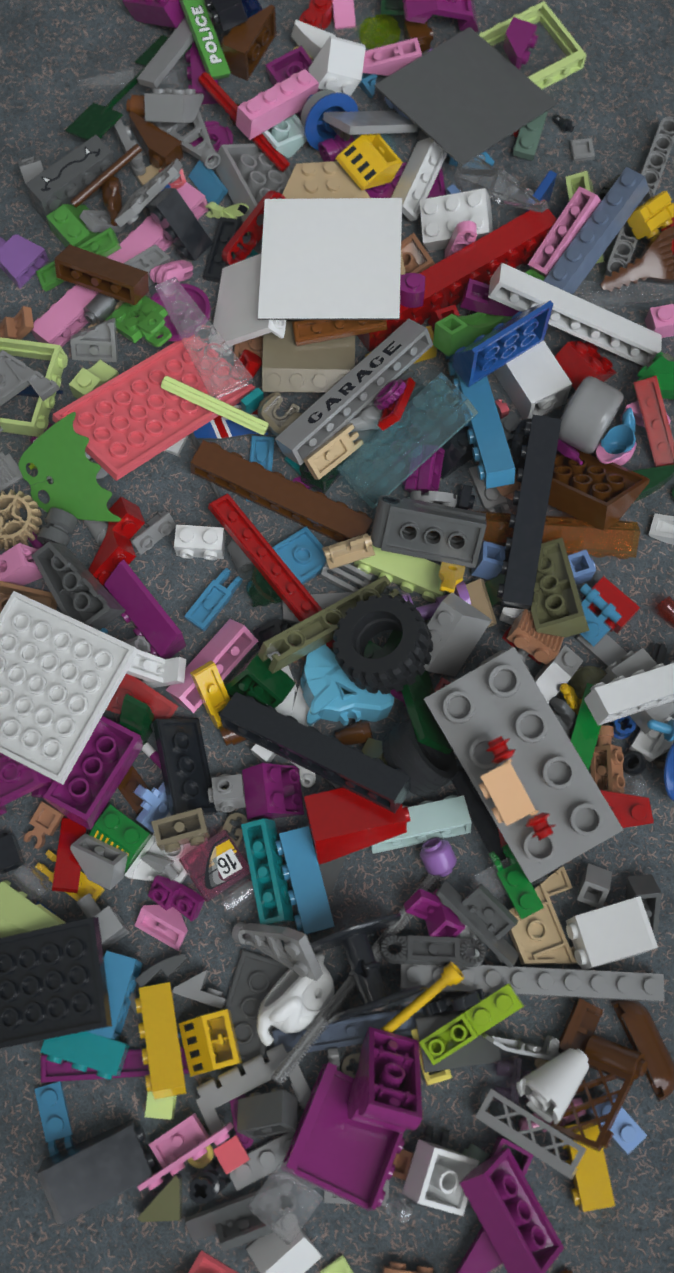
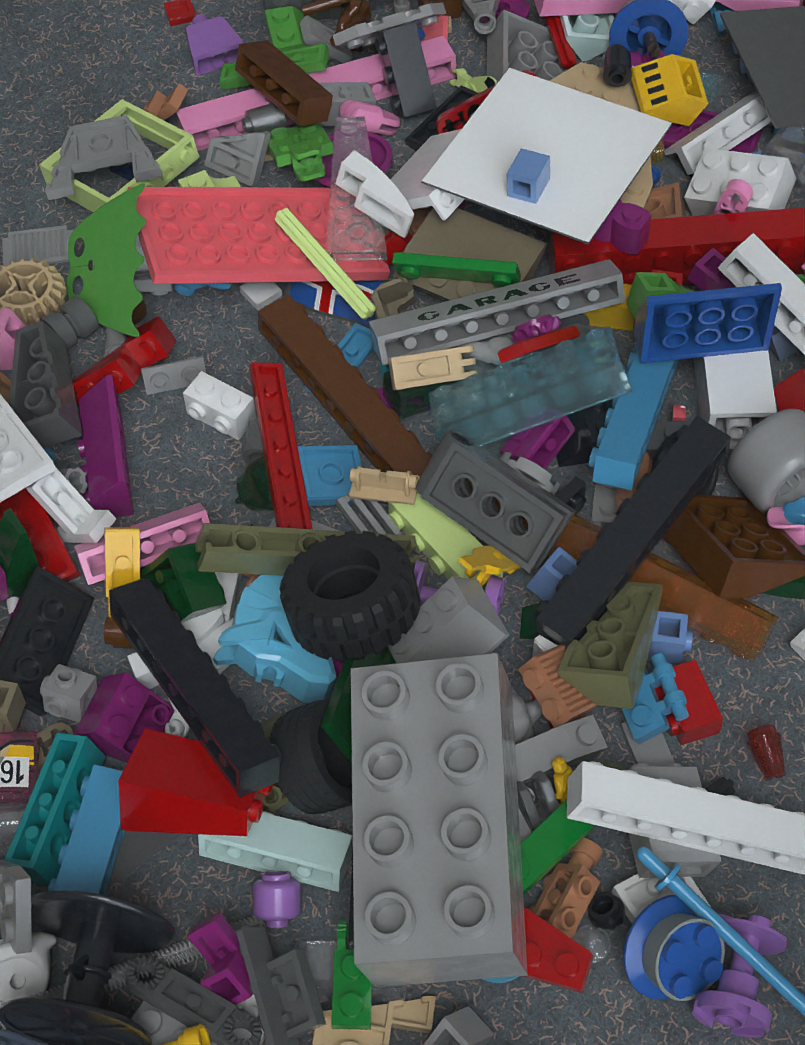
camera: 30 degrees right, 15 degrees down
(208, 183) = (470, 49): dark azure tile -> none
(212, 601) = (195, 476): dark azure hinge -> none
(224, 338) = (375, 193): none -> white slope
(251, 401) = (371, 280): teal tile -> none
(323, 330) = (518, 236): dark orange tile -> none
(327, 159) = (617, 66): none -> black brick
(333, 285) = (528, 176): none -> medium blue brick
(343, 362) = (456, 268): none -> green plate
(355, 733) = (267, 702): reddish brown cone -> none
(370, 122) = (693, 49): light grey tile -> none
(480, 599) = (517, 616): tan tile -> none
(509, 794) = (377, 816): light nougat brick -> none
(568, 451) = (730, 489): magenta piece -> none
(630, 726) = (617, 868): blue bush -> none

